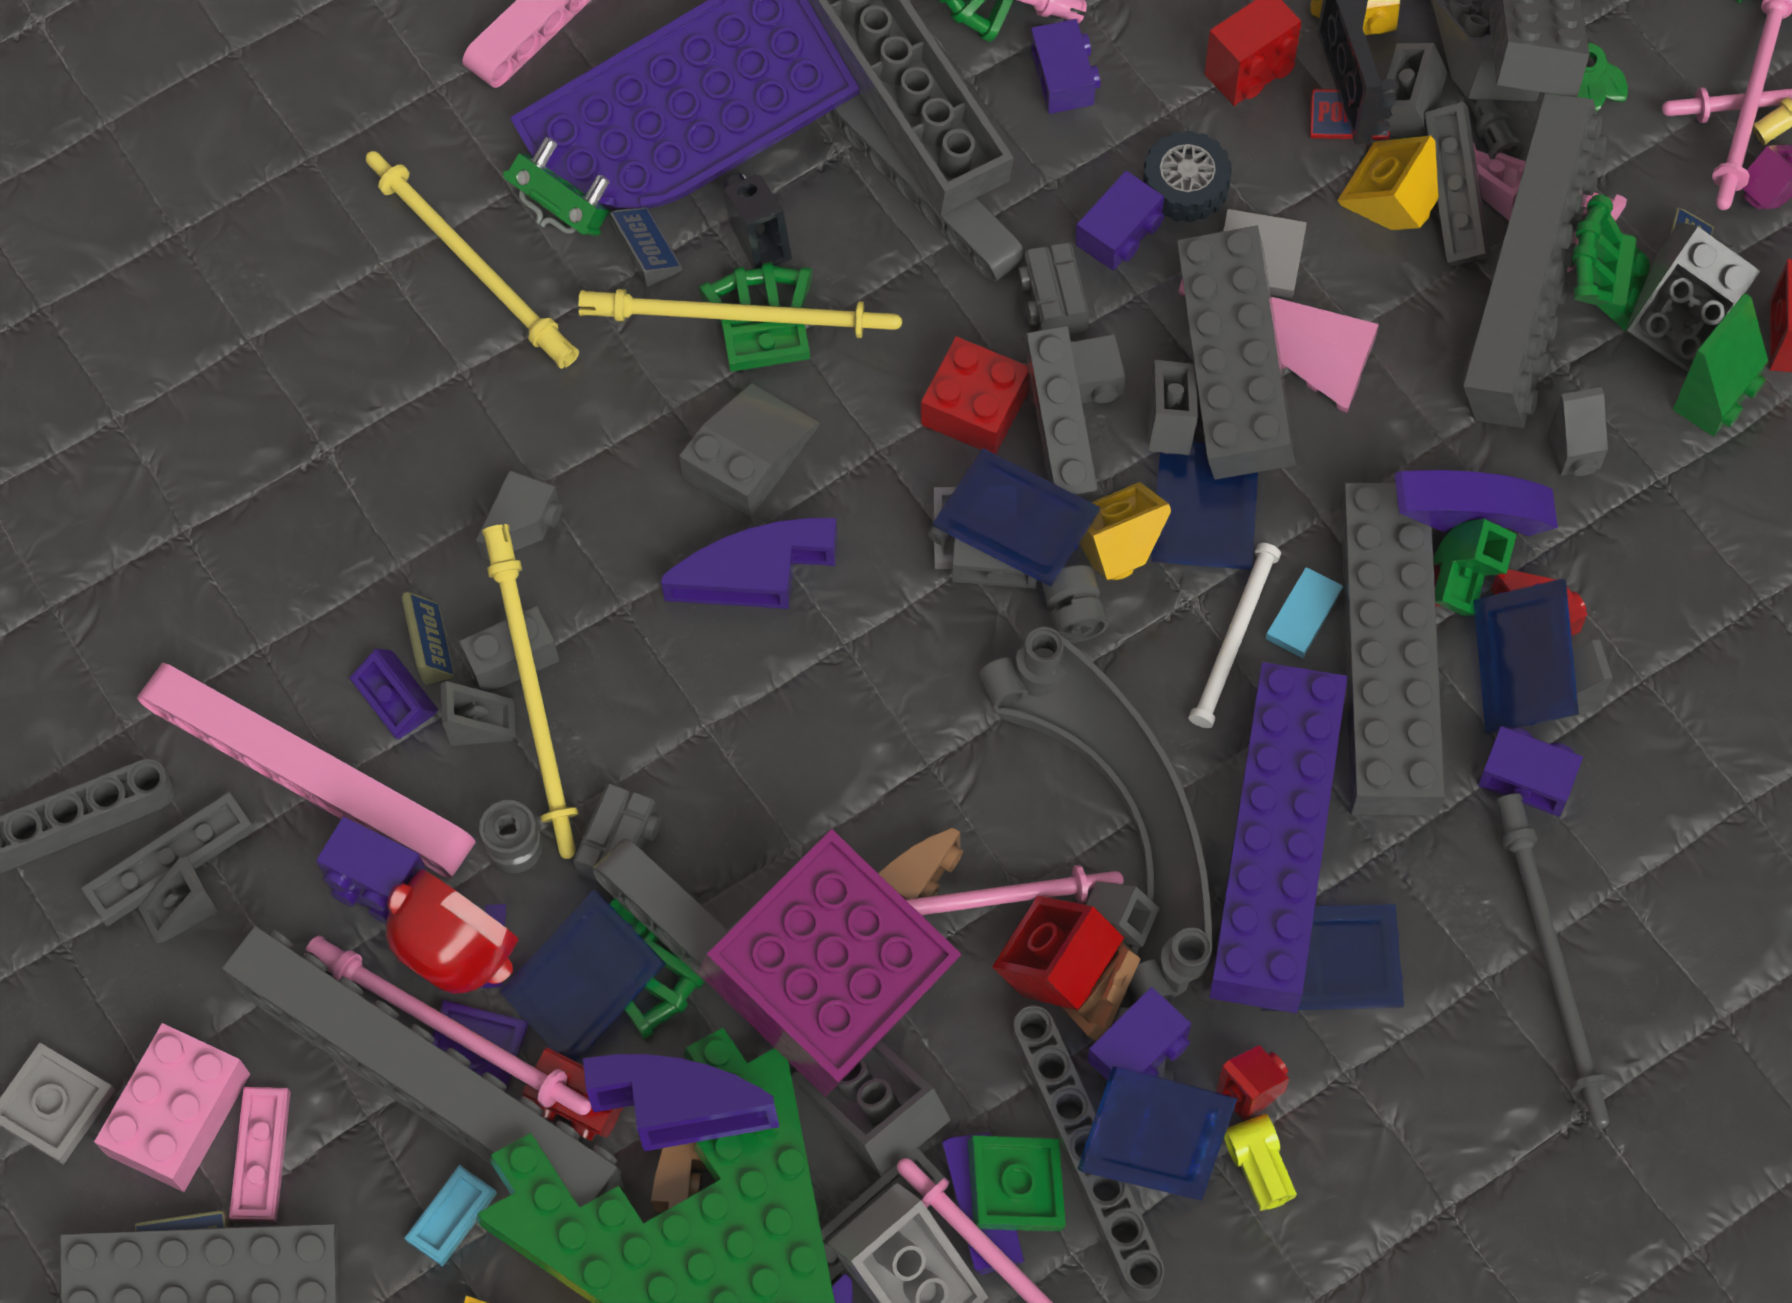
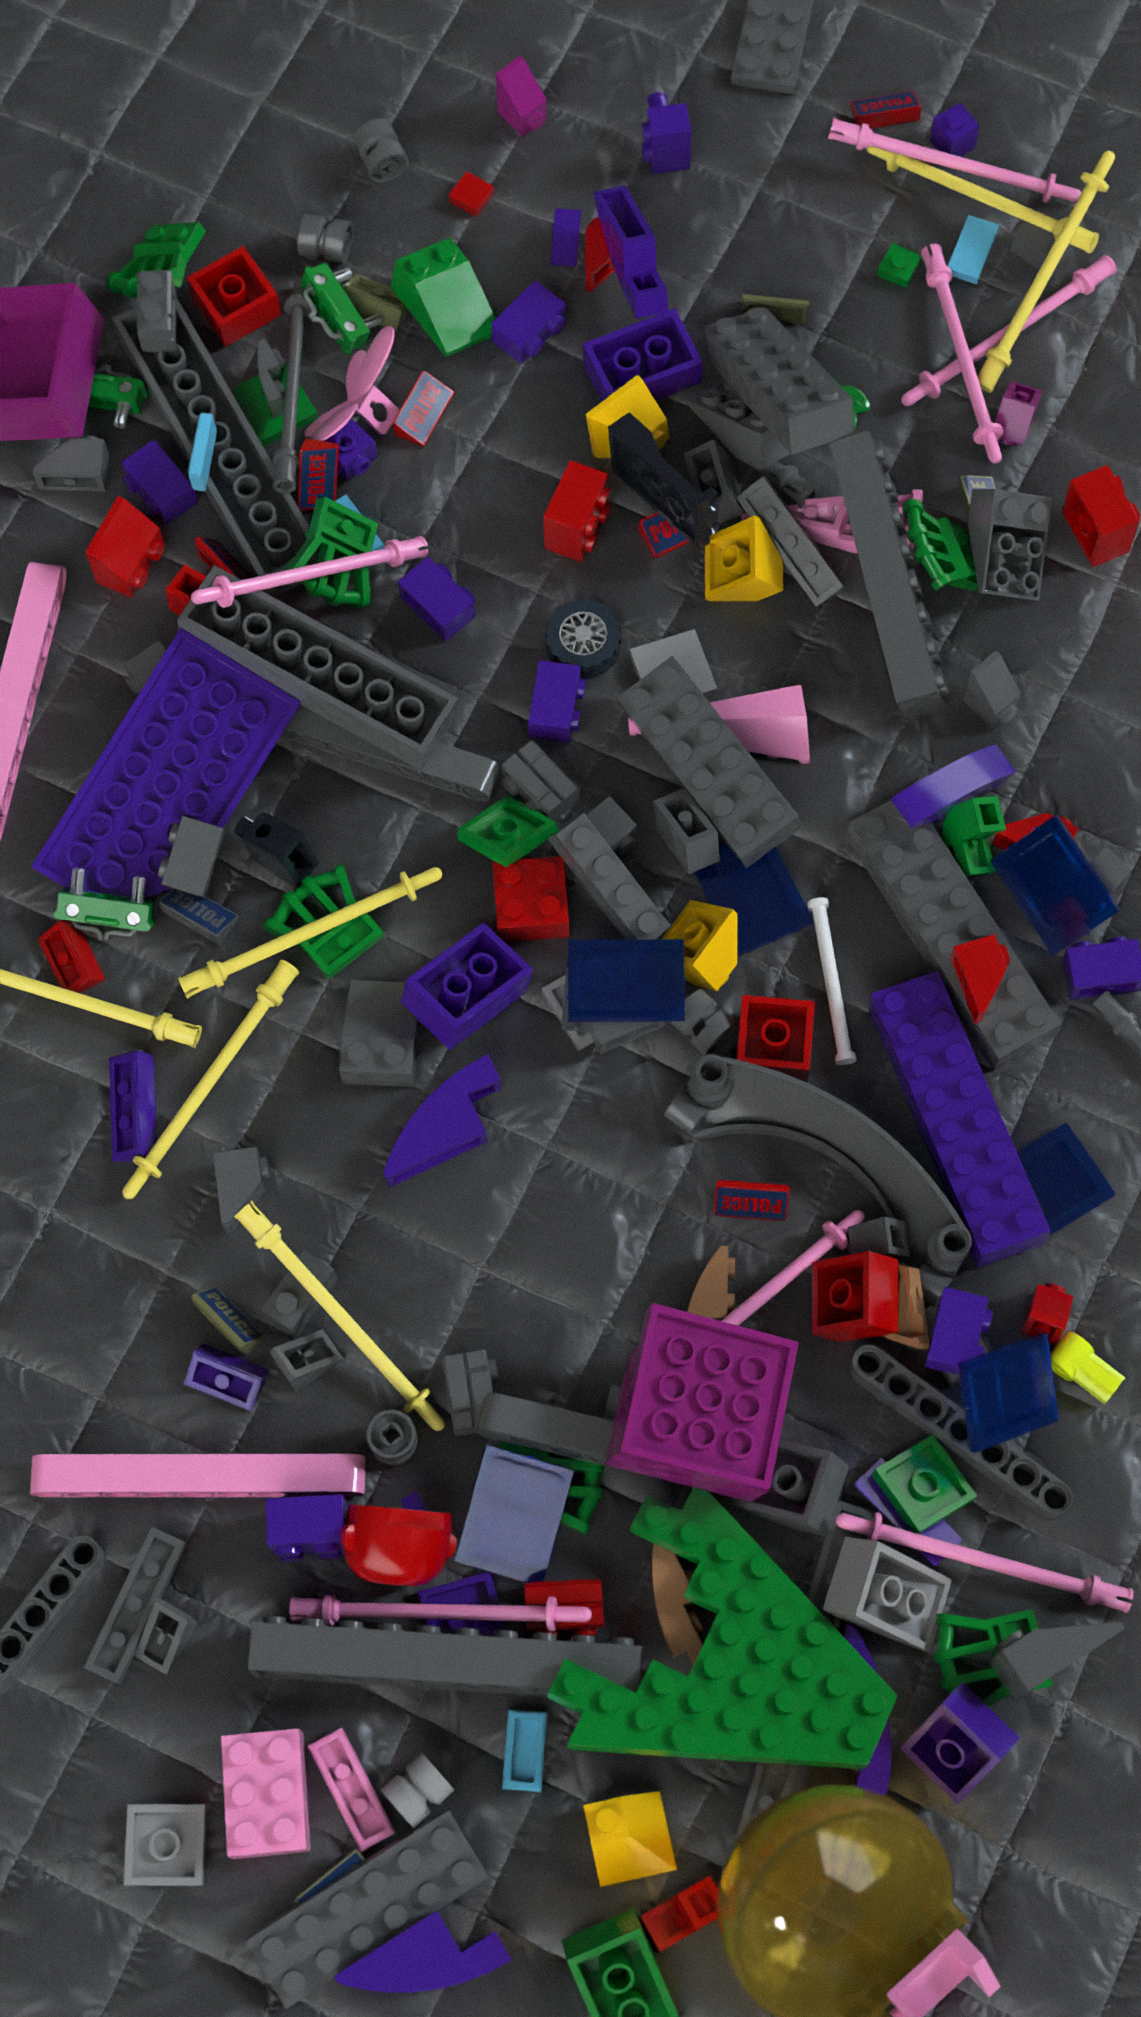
camera: 30 degrees left, 5 degrees up
(319, 1189) = (417, 1790): none -> light grey wheel
(467, 393) = (132, 1105): none -> dark purple slope
(498, 224) = (70, 957): none -> red slope
(660, 356) = (268, 996): none -> light yellow bar
(666, 183) = (192, 856): none -> dark grey brick
(677, 1098) = (653, 1568): dark purple slope -> none
(855, 441) = (466, 986): none -> dark purple brick
(988, 316) = (506, 831): none -> green tile
(1016, 804) = (751, 1200): none -> slope
(1141, 653) = (776, 1034): none -> red brick
(1304, 612) = (871, 936): medium azure tile -> none
(1387, 696) = (980, 970): none -> red slope
(1725, 371) = (1070, 590): green slope -> none

